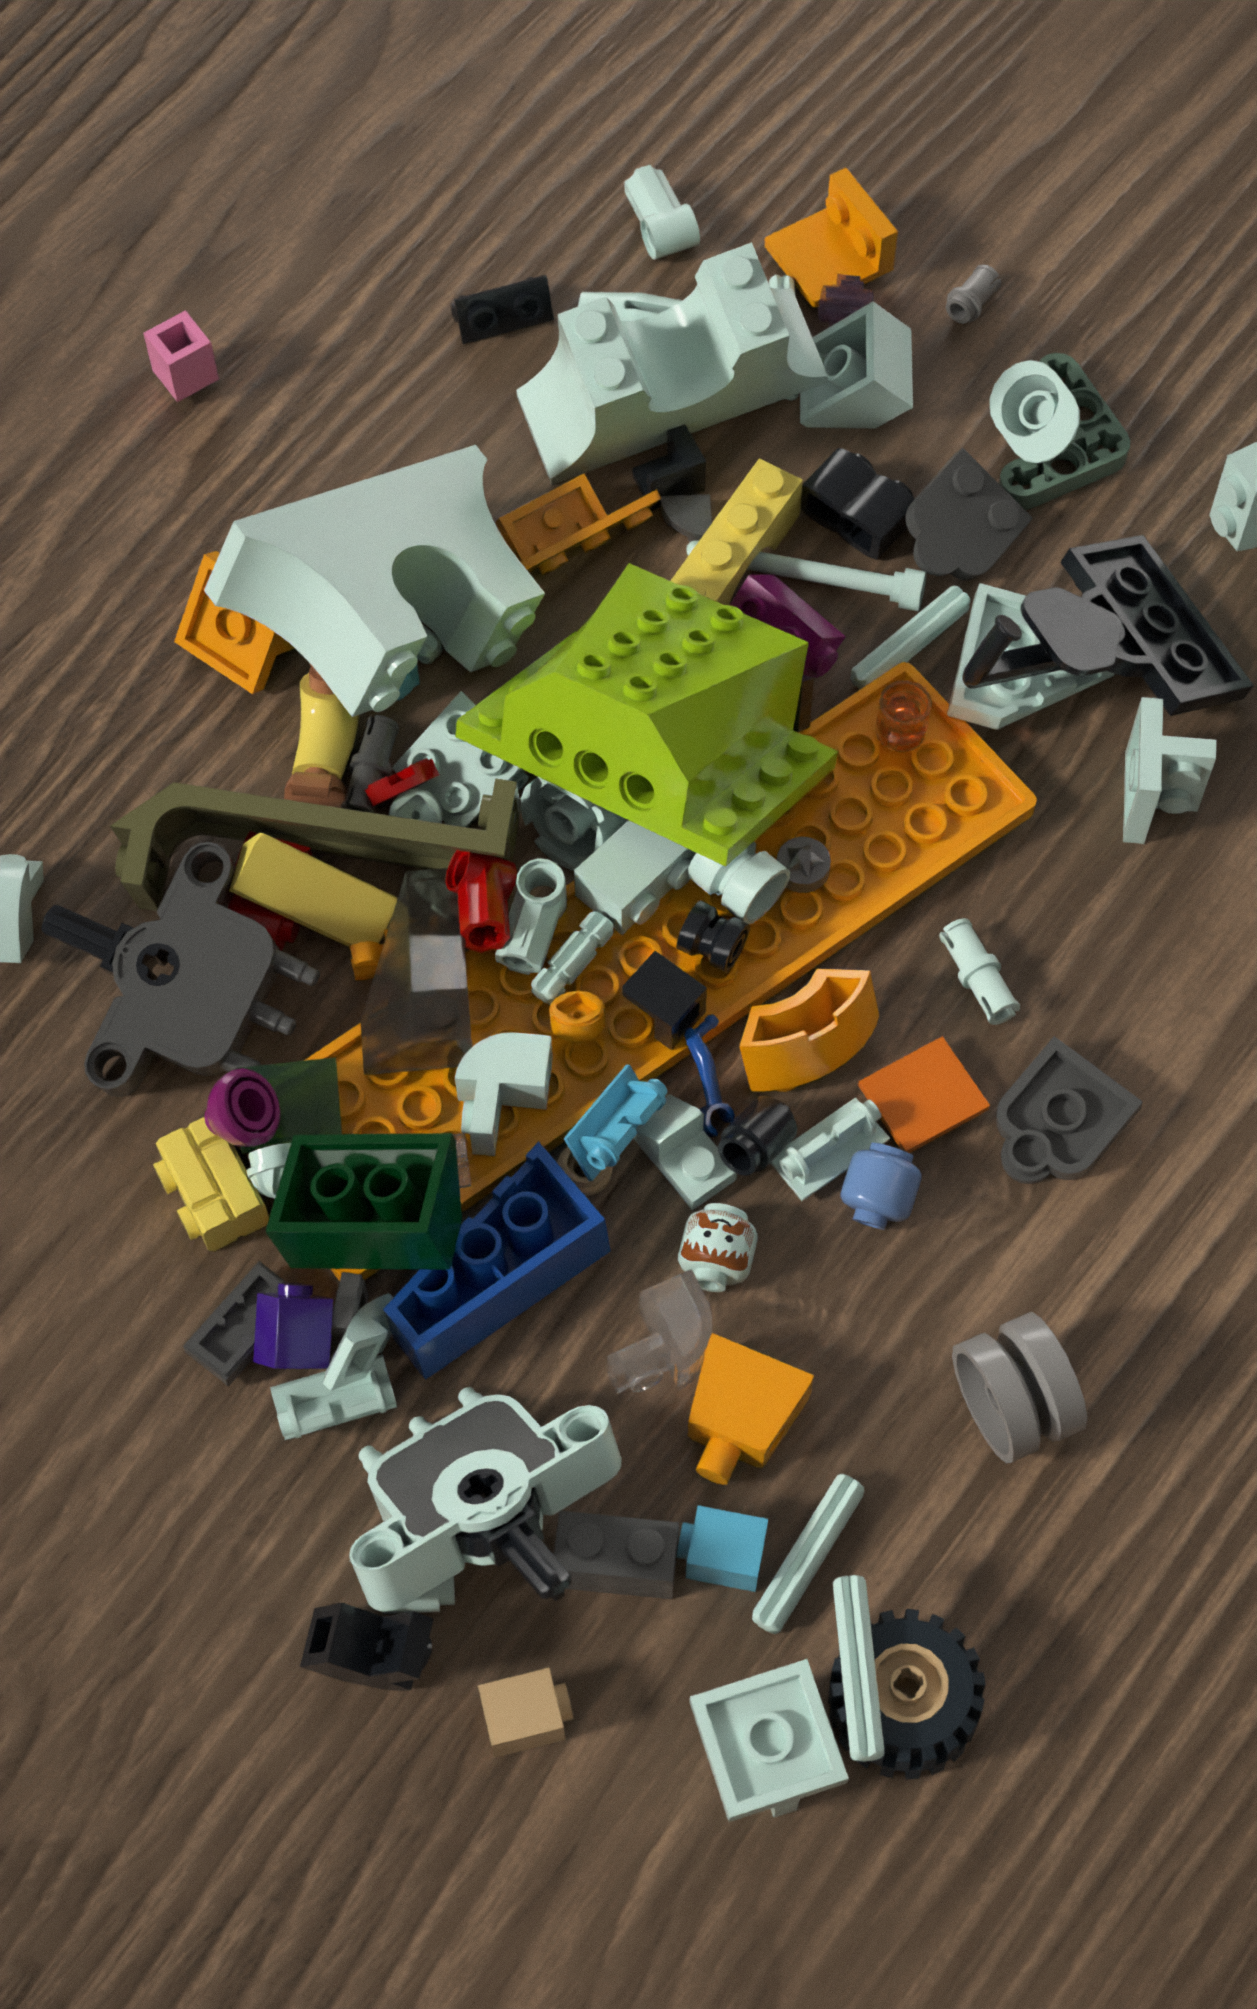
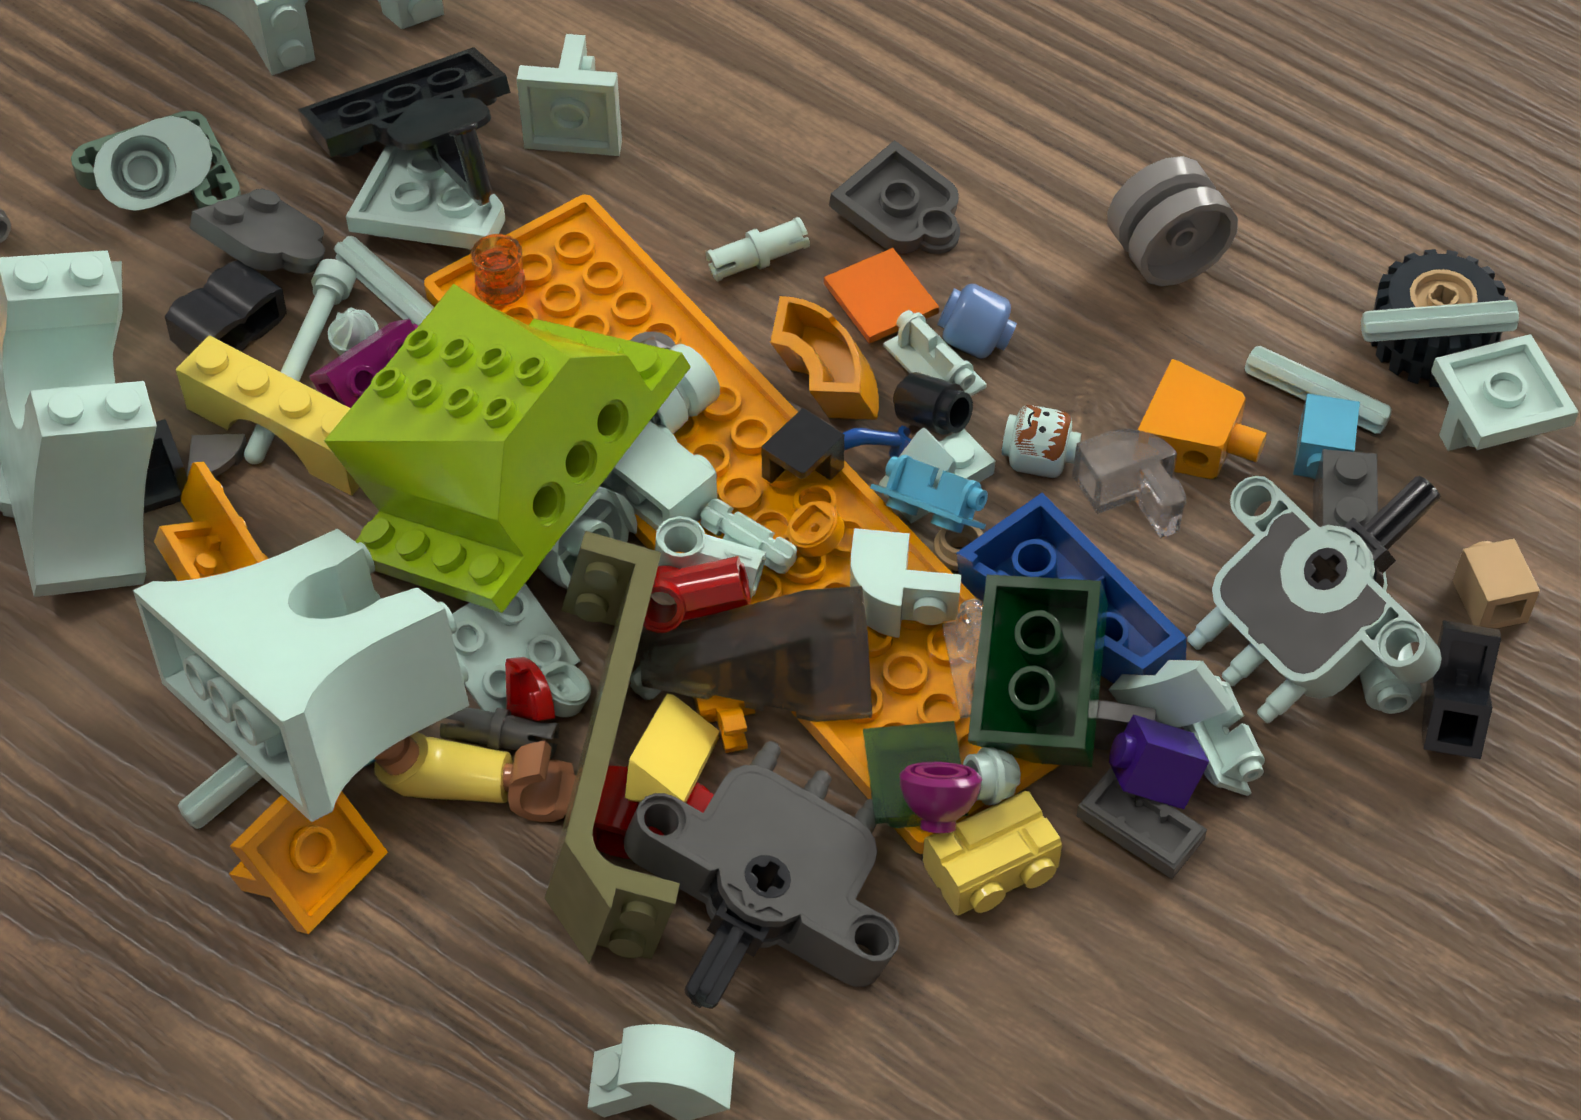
camera: 90 degrees left, 10 degrees down
(713, 936) = (731, 422): black wheel -> none
(845, 611) = (350, 329): none -> light aqua plate

